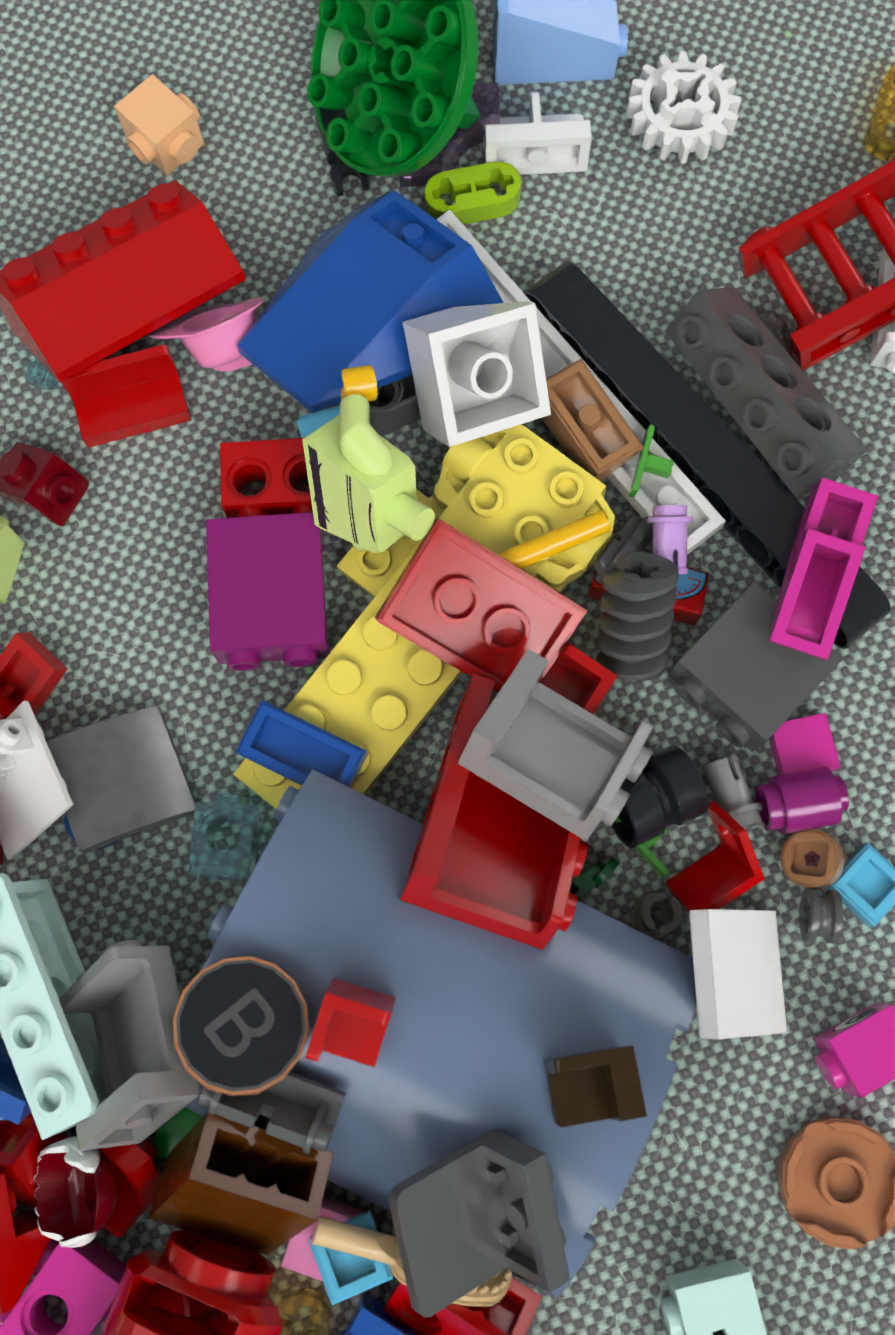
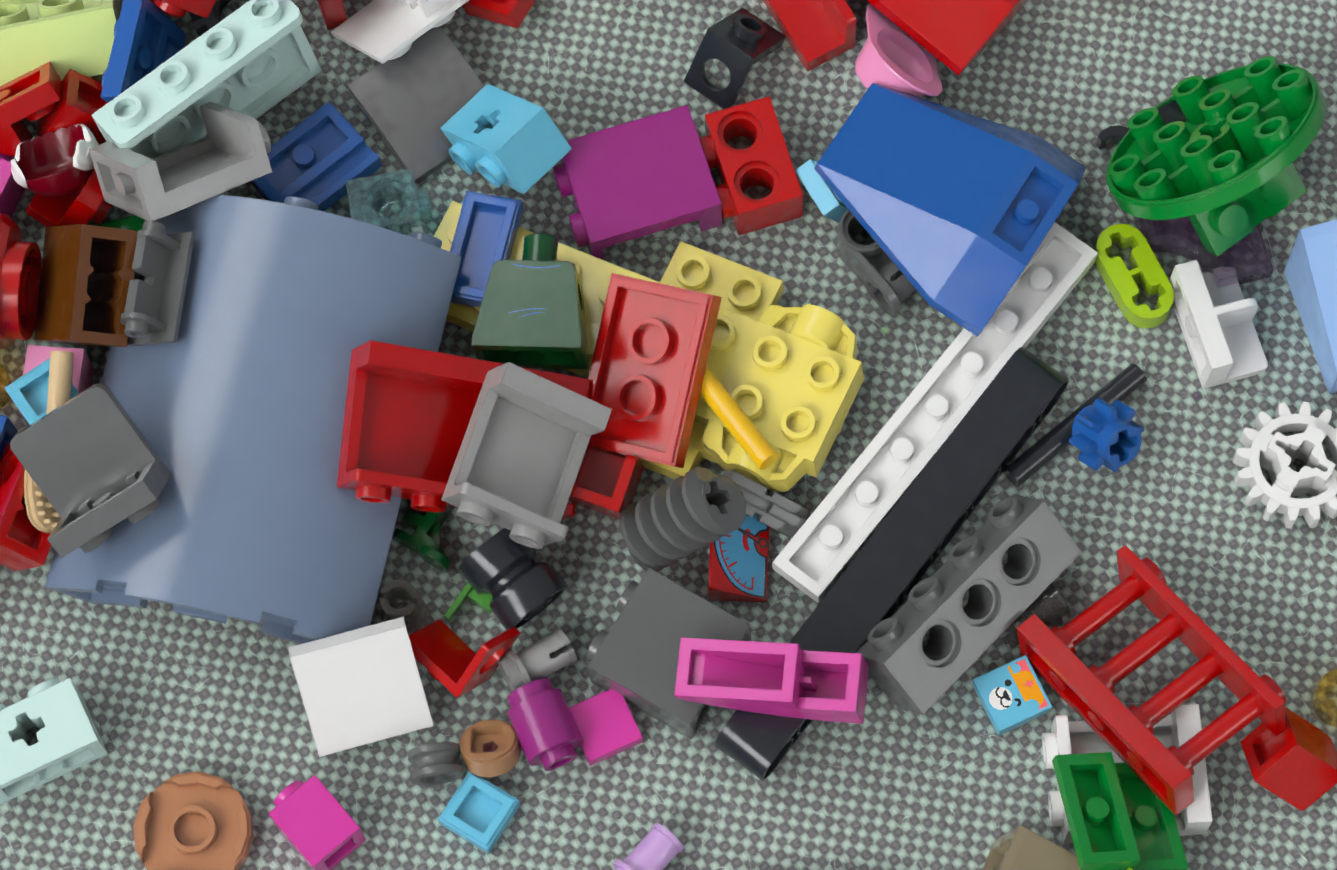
camera: 80 degrees right, 5 degrees down
(152, 463) = (739, 44): none -> black bracket
(154, 901) = (317, 160): none -> blue plate
(191, 701) = (504, 139): none -> medium azure brick
(240, 1026) = (212, 236): black tile -> none
(351, 1023) = (233, 323): red panel -> none
(360, 480) = (742, 215): yellowish green torso -> none
(389, 707) = (533, 311): none -> torso
(477, 369) = (889, 304): white slope -> none
(588, 422) = (884, 433): medium nougat slope -> none
(593, 263) = (1058, 438): none -> black bar
(595, 1086) = (223, 541): dark brown panel -> none
(623, 244) = (1106, 435): none -> blue gear
(649, 463) = (858, 504): bright green piece -> none
(671, 533) = (779, 539): lavender pin -> none
(843, 383) = (1011, 695): none -> medium azure tile

